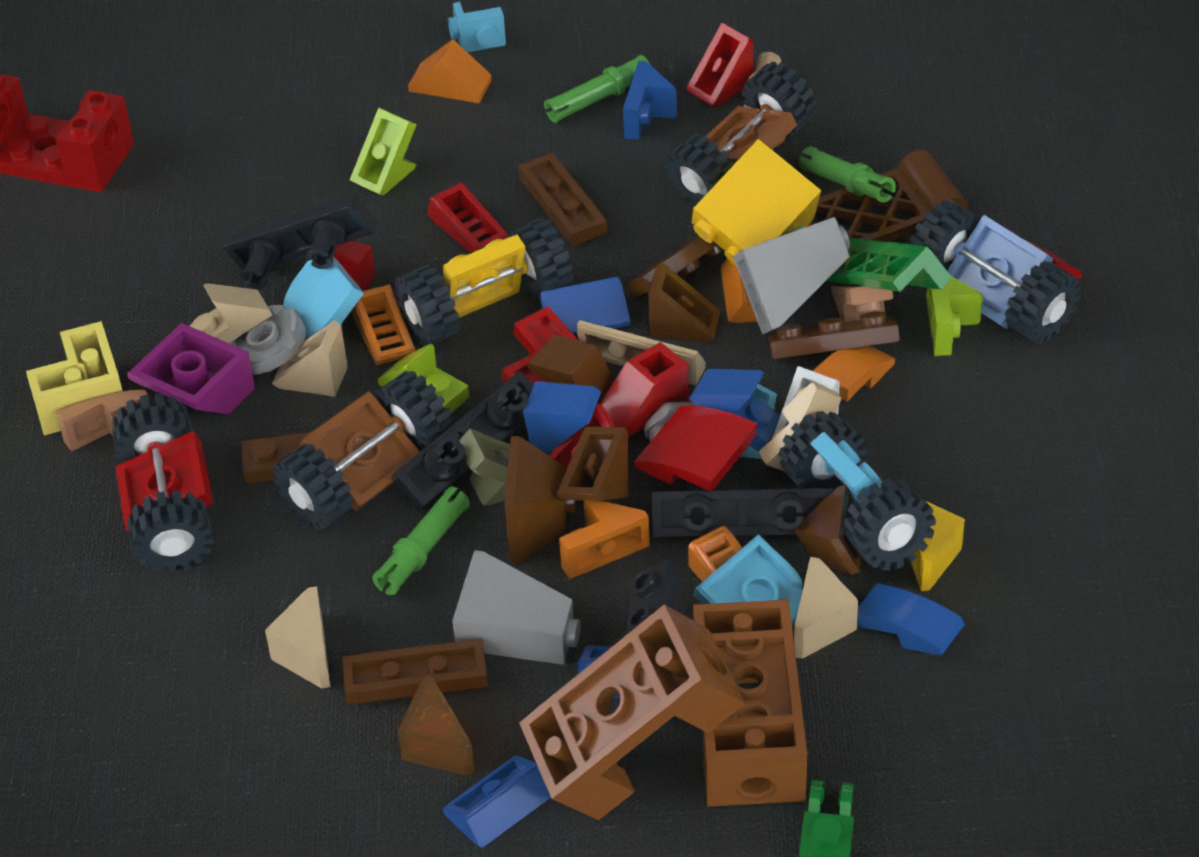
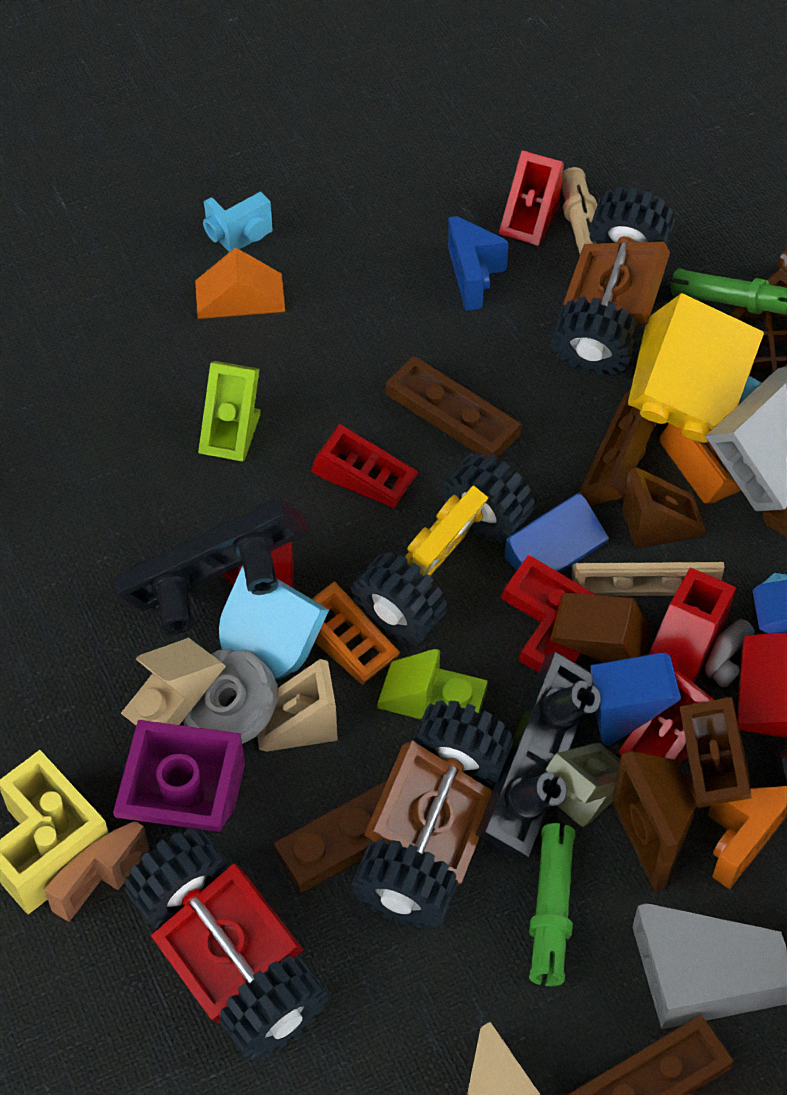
camera: 25 degrees left, 10 degrees up
(611, 82) = (420, 248): bright green pin -> none

